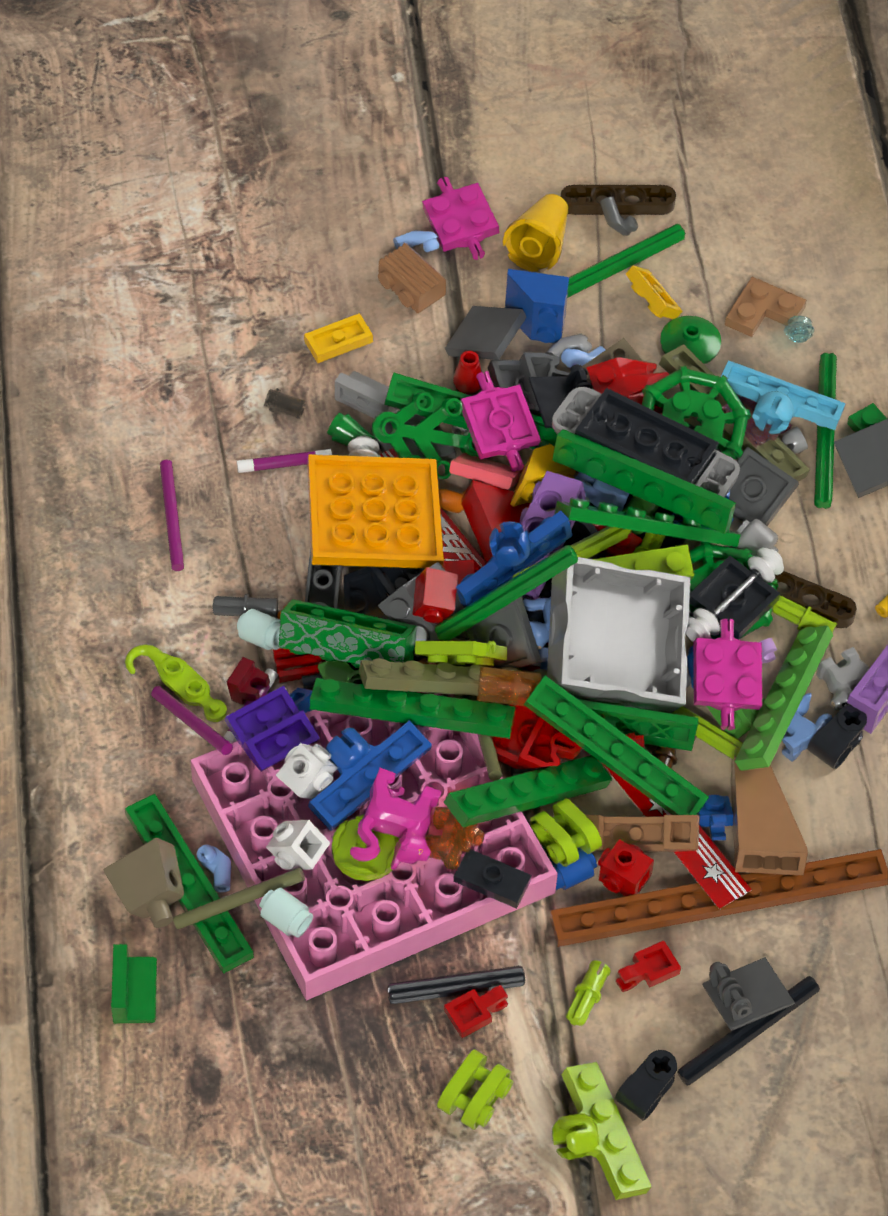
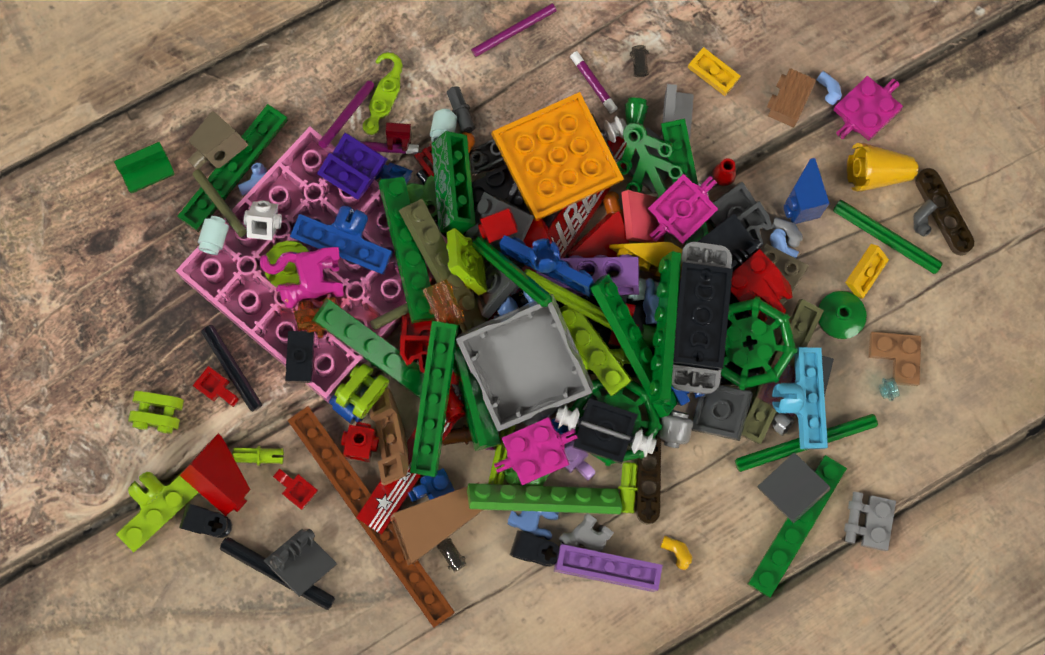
camera: 65 degrees right, 20 degrees up
(307, 770) = (321, 201): white brick -> none
(486, 332) = (767, 168): dark grey tile -> none
(596, 1042) = (217, 477): none -> red slope
(814, 828) = (452, 555): none -> clear smoke pin

